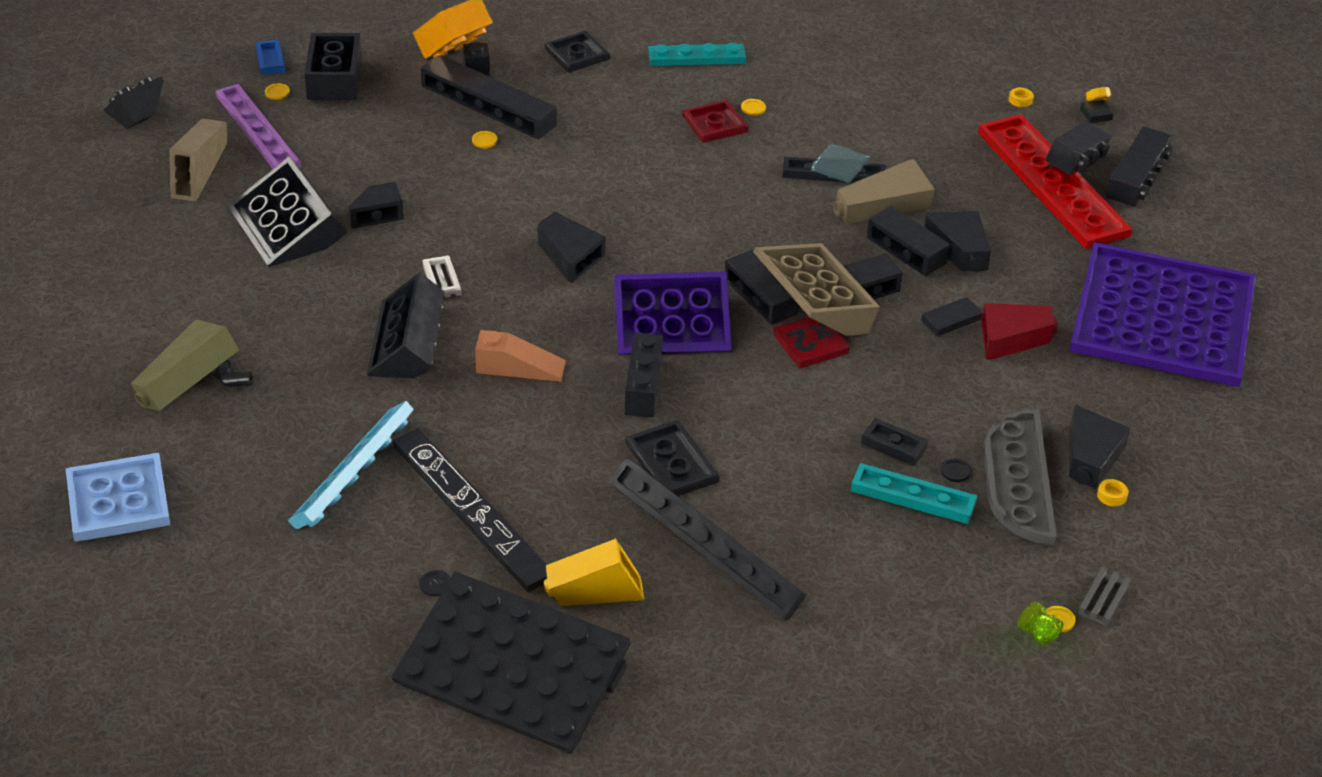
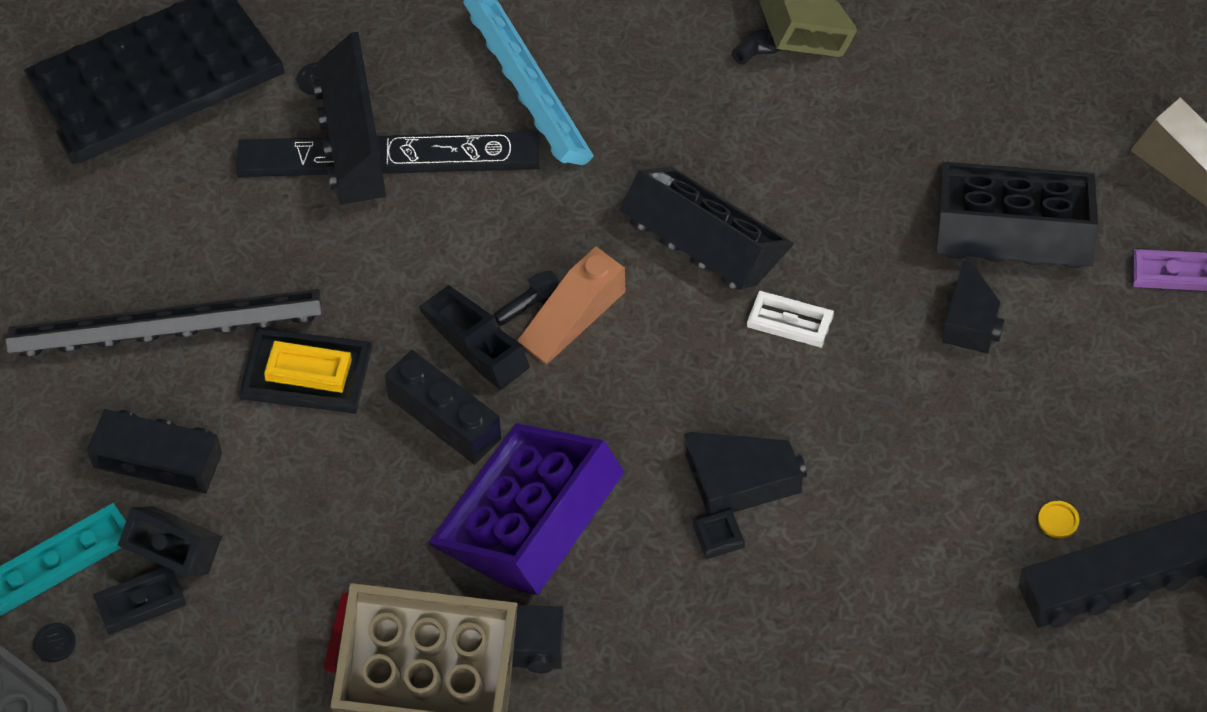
camera: 130 degrees right, 15 degrees up
(474, 505) = (350, 123): none -> black slope
(518, 376) = (540, 289): none -> black bar
(578, 390) = (476, 336): none -> black slope
(594, 577) = (186, 189): yellow slope -> none
(616, 245) = (718, 534): none -> black tile
(673, 448) = (308, 366): none -> yellow tile
(798, 486) = (155, 450): none -> black brick
(850, 436) = (169, 540): none -> black brick

